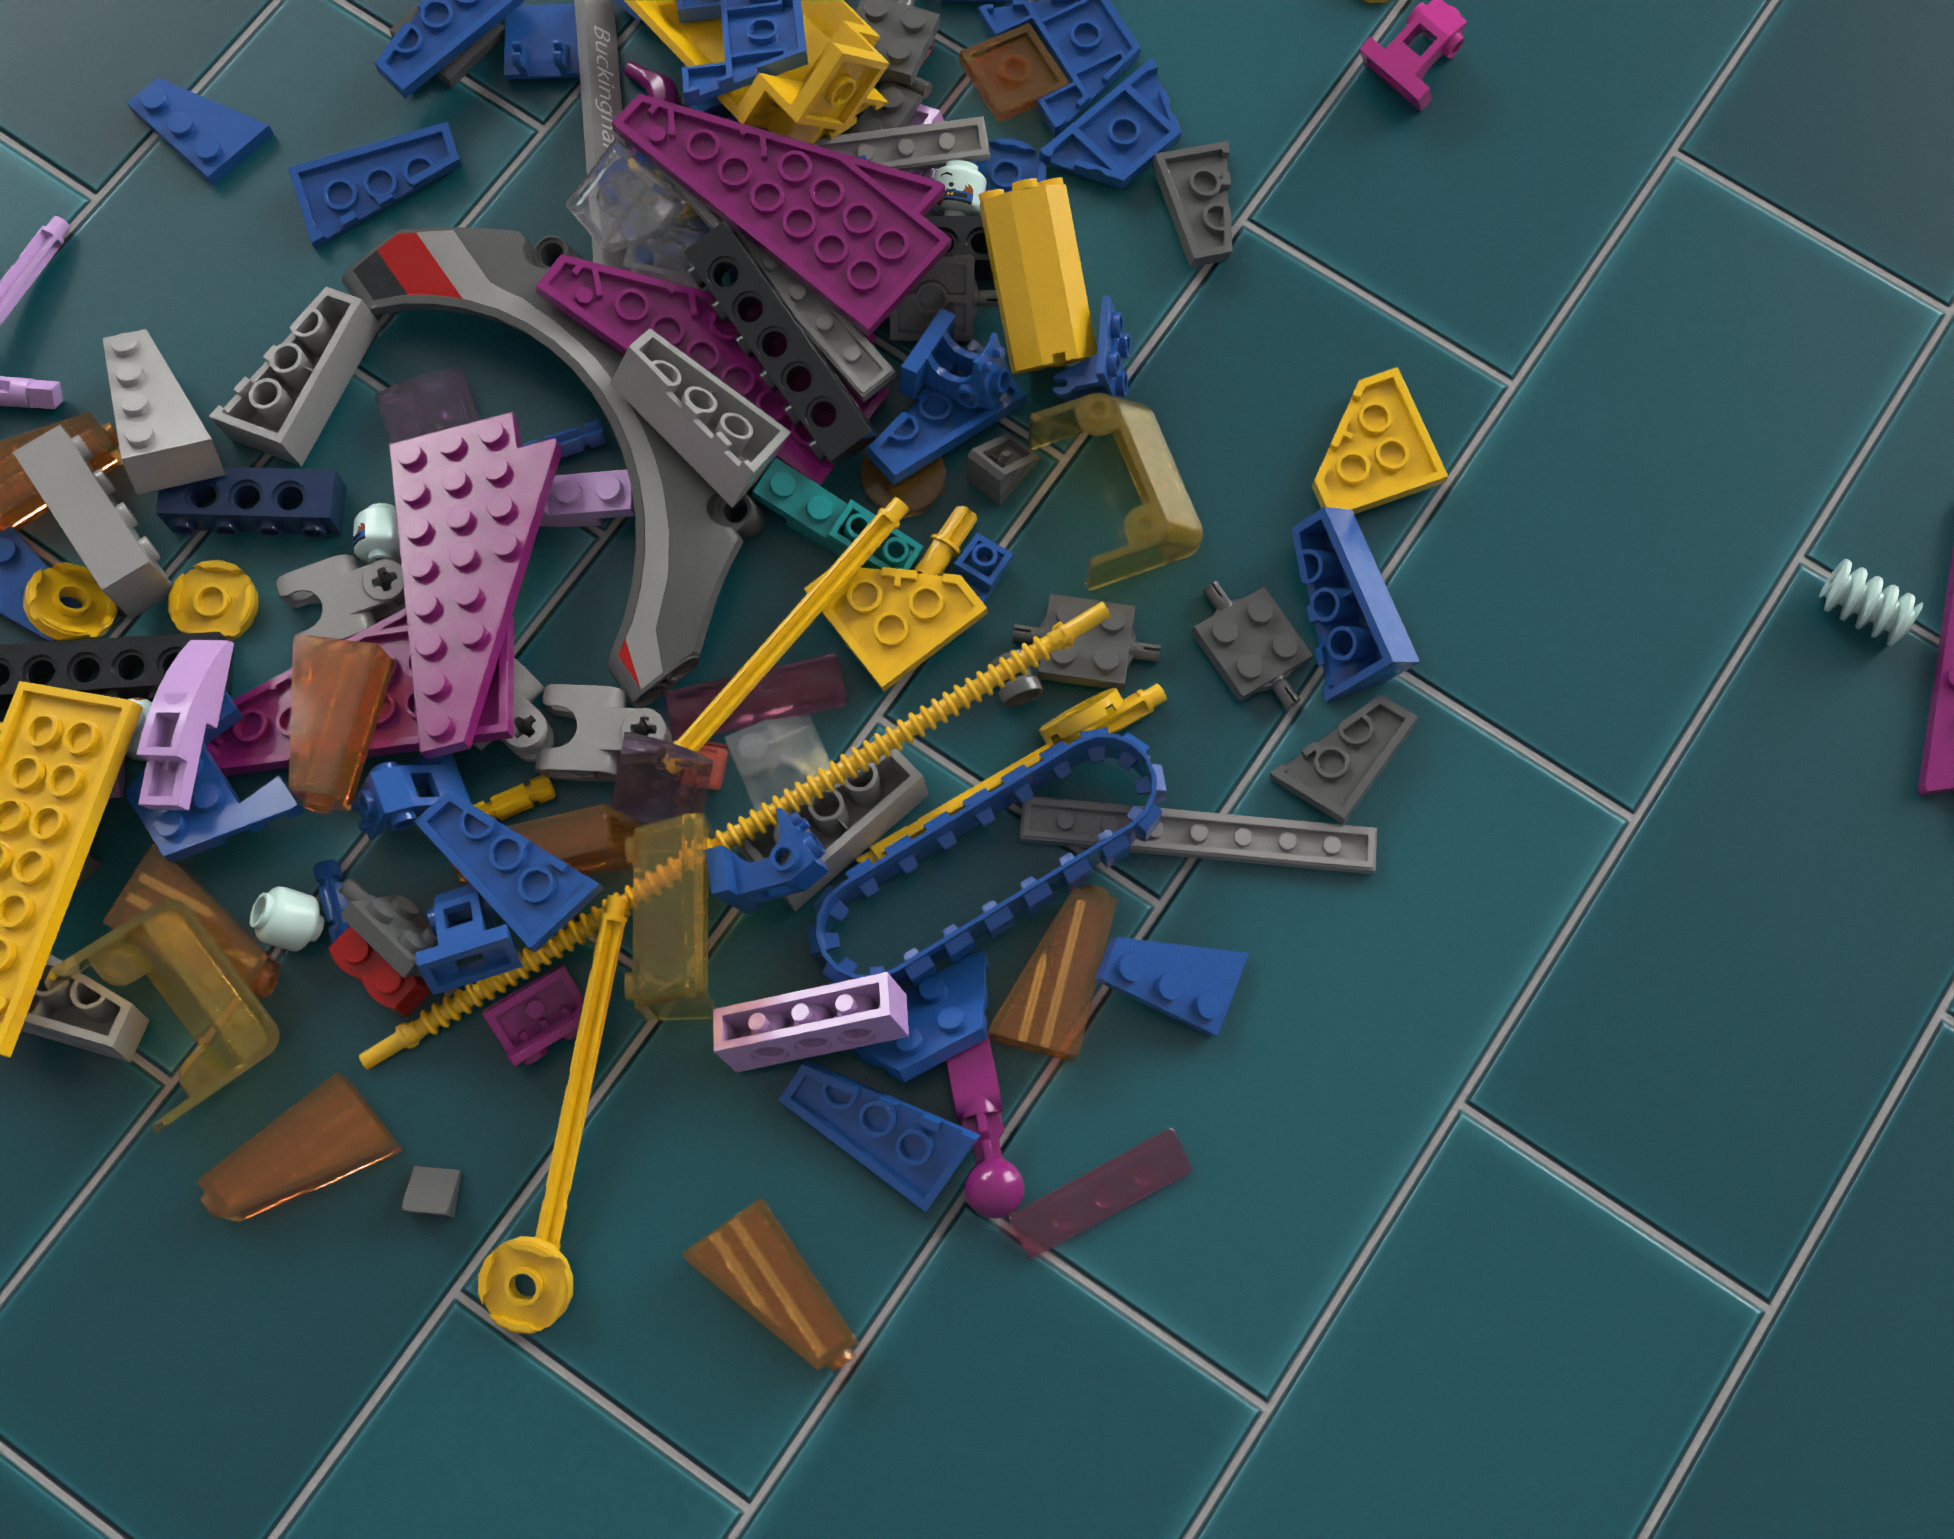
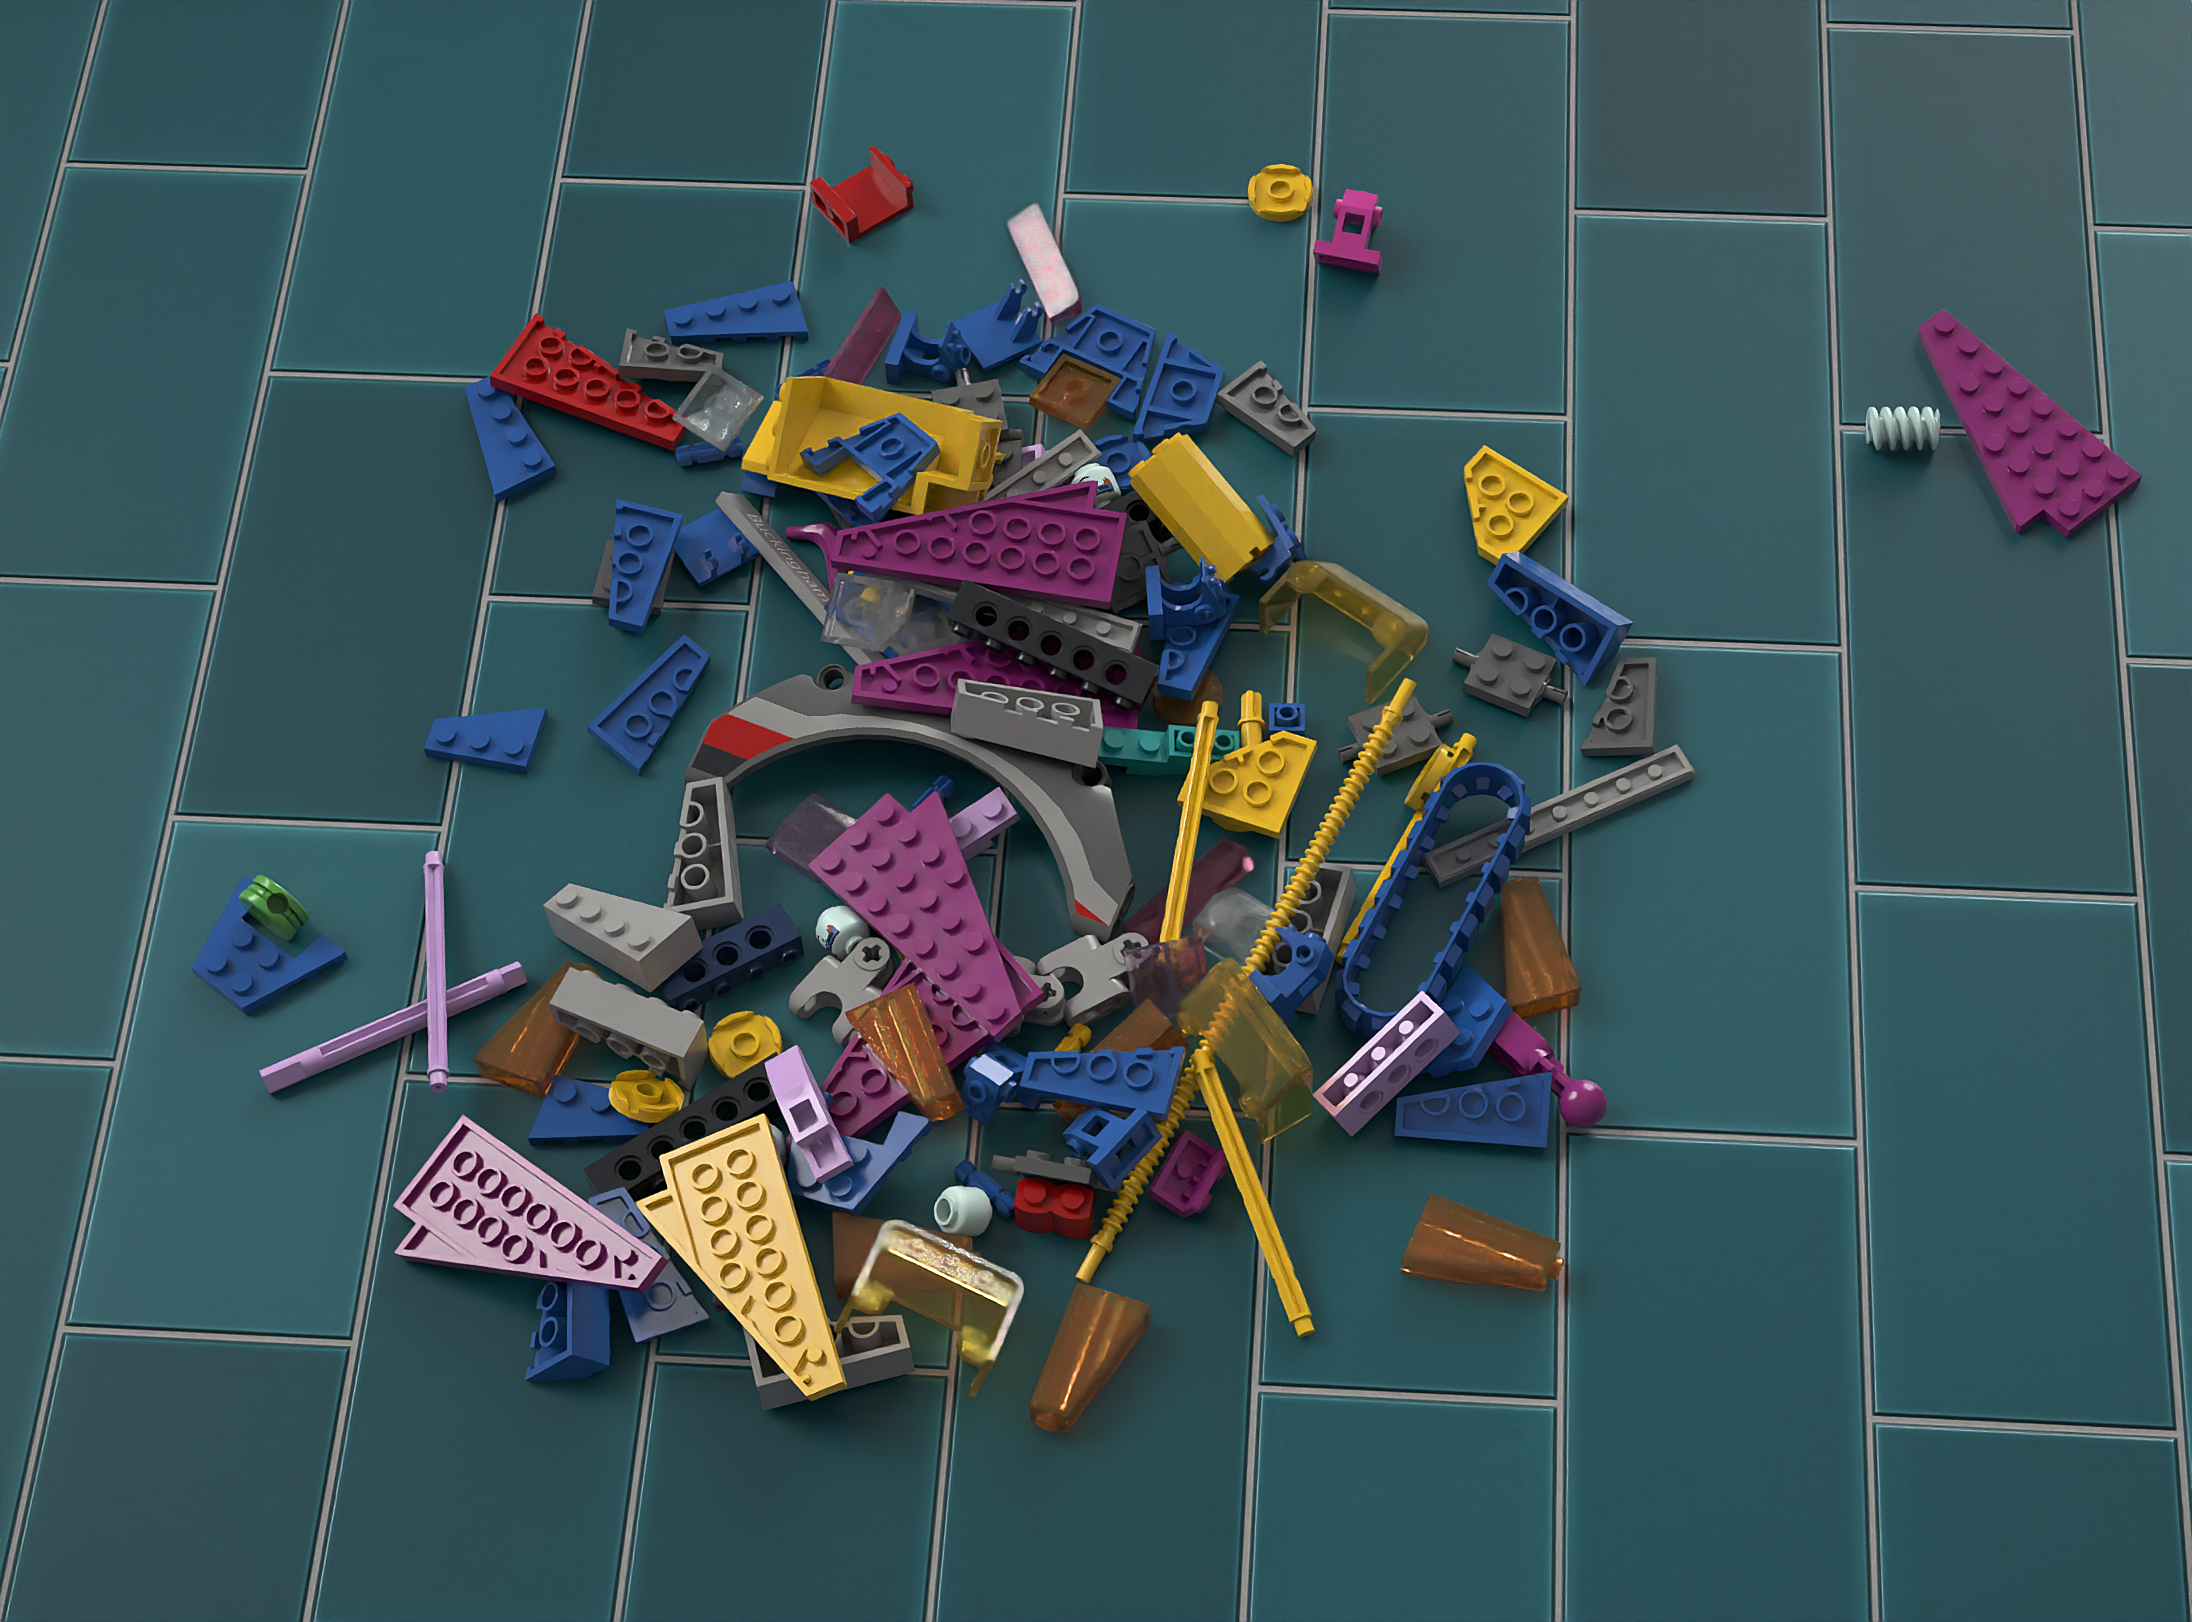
camera: 25 degrees left, 15 degrees down
(432, 1192) = (1195, 1331): dark grey slope -> none
(546, 1268) = (1282, 1346): yellow tile -> none
(1000, 466) = (1253, 656): dark grey slope -> none
(1022, 690) = (1373, 789): dark grey wheel -> none
(1100, 1193) = (1654, 1071): clear pink slope -> none
(1174, 979) = (1610, 908): blue wing -> none

